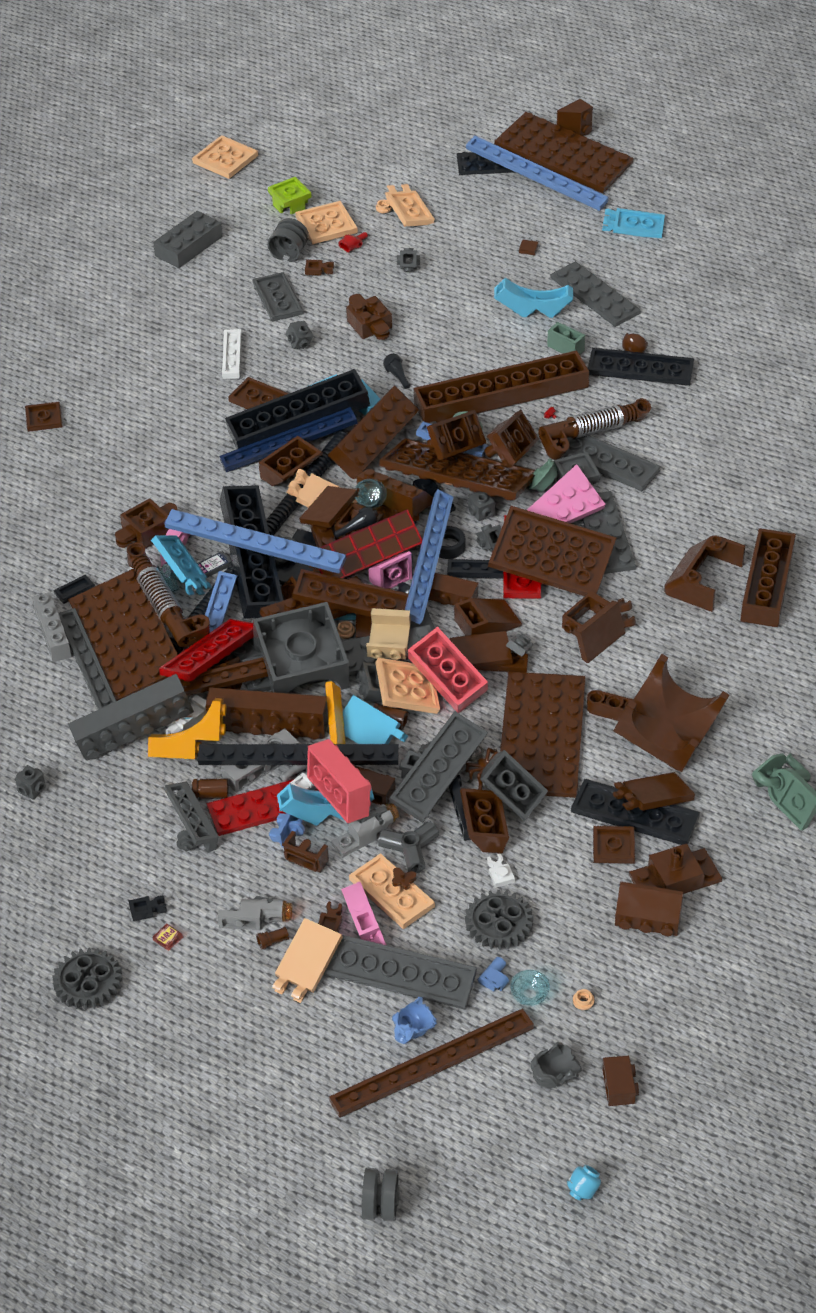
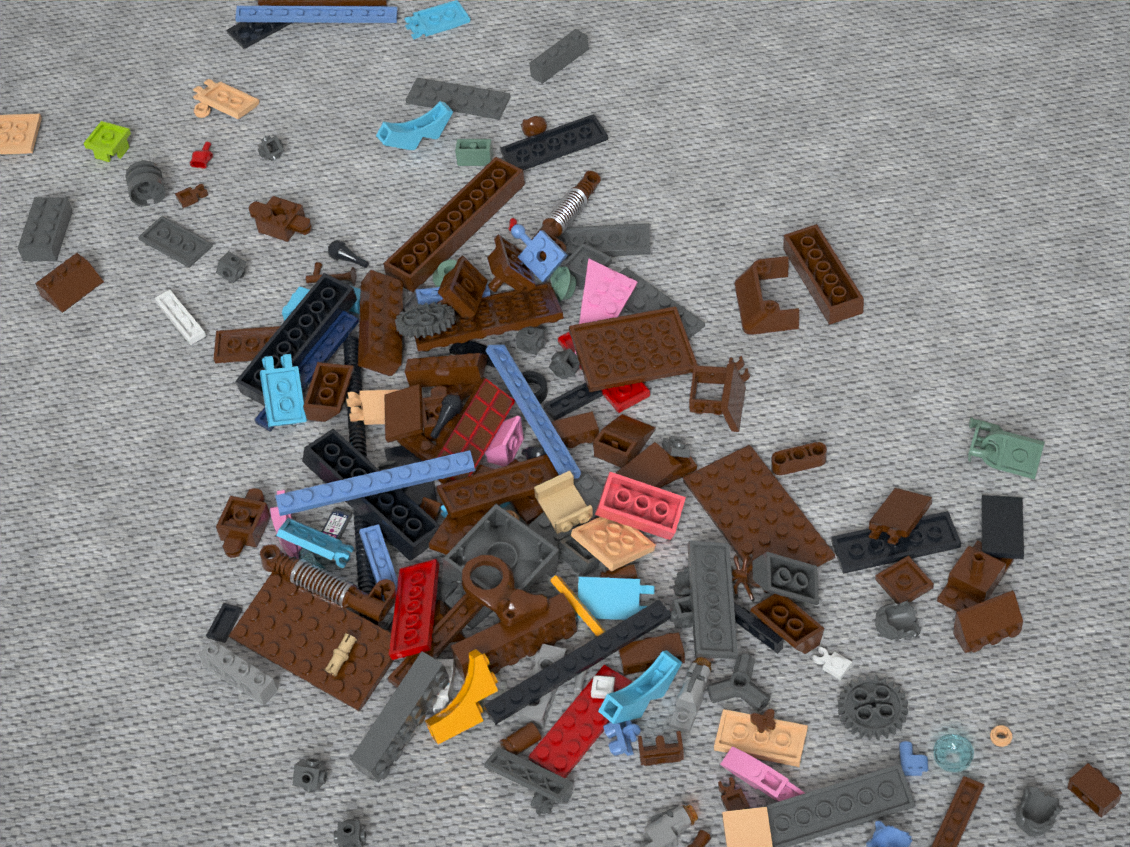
camera: 30 degrees left, 5 degrees up
(39, 724) = (309, 774): none -> dark grey brick
(43, 416) = (47, 471): reddish brown tile -> none
(86, 659) = (307, 689): dark grey plate -> none
(130, 652) = (340, 654): none -> tan pin
(171, 287) = (69, 282): none -> reddish brown slope
(252, 444) = (282, 392): none -> medium azure tile
(275, 675) = (505, 600): none -> reddish brown animal
(327, 222) = (163, 147): light nougat plate -> none
(338, 781) = (648, 665): coral brick -> none
(371, 493) = (435, 380): clear light blue helmet -> none
(384, 387) = (349, 276): none -> reddish brown piece
(404, 445) = (425, 320): none -> dark grey gear
(528, 247) = (364, 85): reddish brown tile -> none
(532, 439) = (530, 254): none -> medium blue plate
(576, 868) = (897, 621): none -> dark grey hair
(667, 718) = (858, 443): reddish brown piece -> none
(707, 298) = (559, 56): none -> dark grey brick
(734, 848) = (1002, 526): none -> black tile

